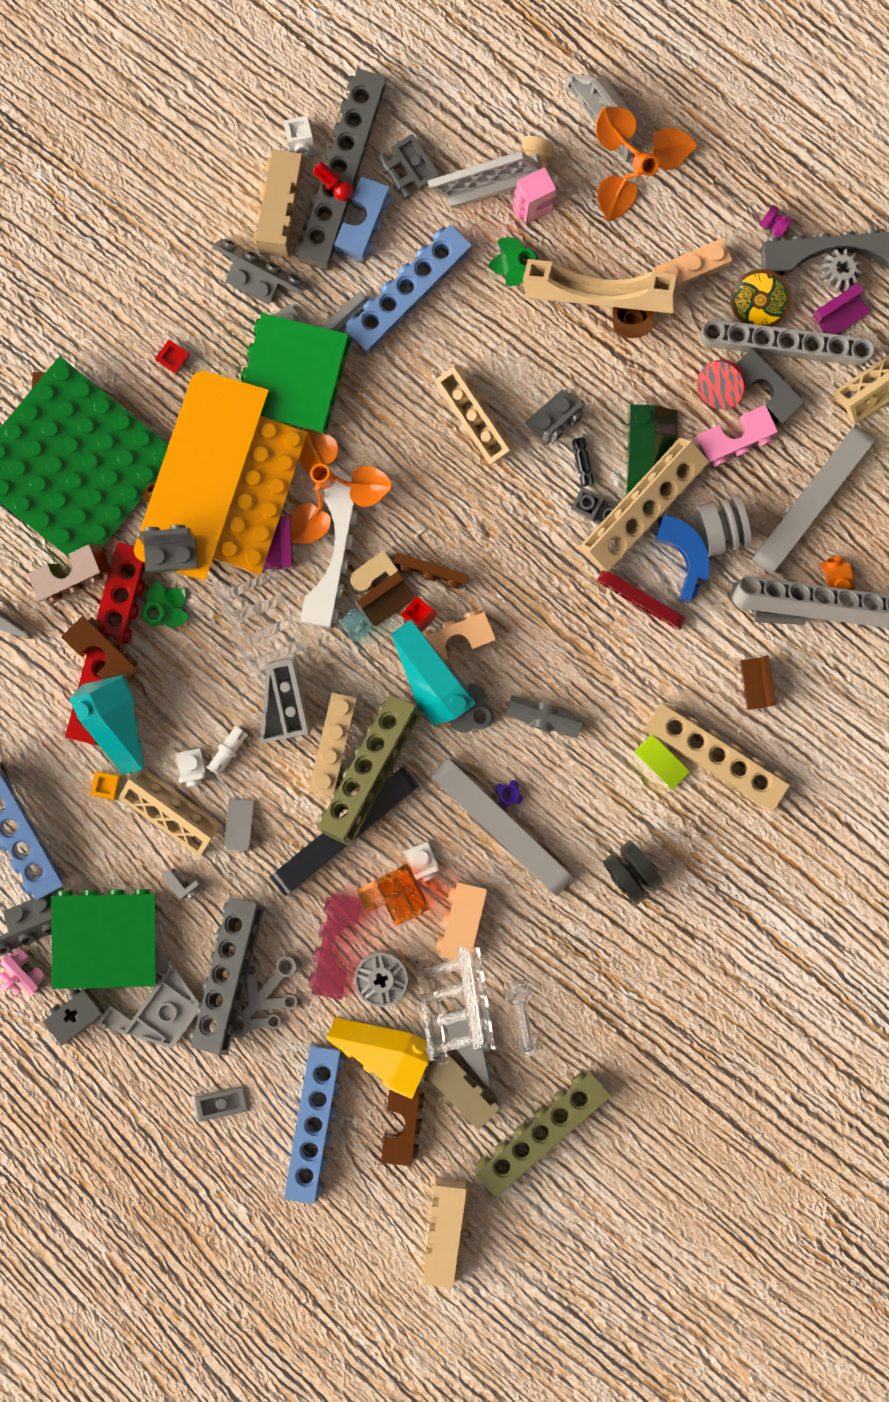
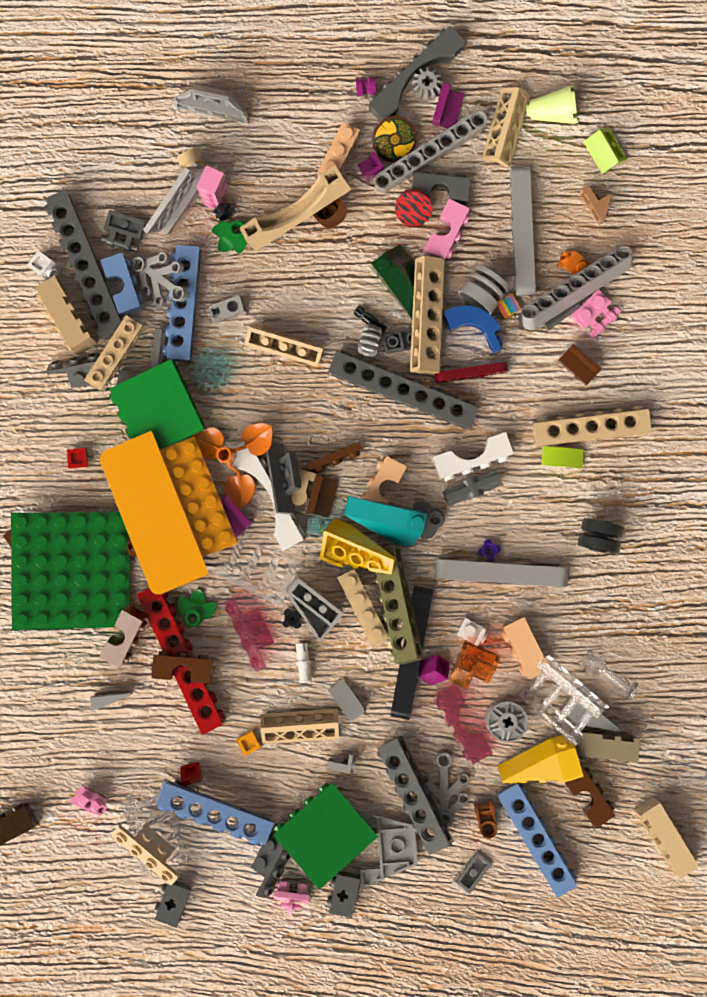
camera: 30 degrees left, 0 degrees up
(21, 767) = (191, 774): none -> red plate
(109, 717) = (218, 701): teal wedge -> none
(169, 549) = (172, 573): dark grey bracket -> none
(191, 767) = (290, 690): white bracket -> none
(201, 677) = (251, 631): none -> clear pink bracket
(246, 697) = (288, 622): none -> black plate
(280, 1058) = (486, 816): none -> dark orange piece
(295, 282) = (114, 353): none -> tan brick
(342, 189) = (96, 276): red axle -> none
(351, 867) = (433, 670): none -> magenta panel
(361, 547) = (283, 477): none -> dark grey bracket
(368, 378) = (202, 376): none -> clear light blue gear
(369, 670) = (348, 546): none -> yellow wedge
(398, 216) = (158, 278): none -> light grey plant
(420, 613) = (349, 487): red bracket -> none
(448, 332) = (227, 309): none -> light grey leg
(498, 1181) = (672, 781): olive brick -> none
(526, 230) = (223, 211): none -> black plate
(541, 675) = (496, 449): none -> white arch
(554, 416) = (331, 306): dark grey bracket -> none
(564, 481) = (369, 340): none -> light grey gear
(592, 641) = (342, 359): none -> dark grey brick
(613, 129) = (227, 107): orange plant -> none
(712, 307) = (370, 167): none -> magenta panel
(734, 564) = (508, 306): none -> tile
(817, 637) = (591, 310): none -> bright pink plate

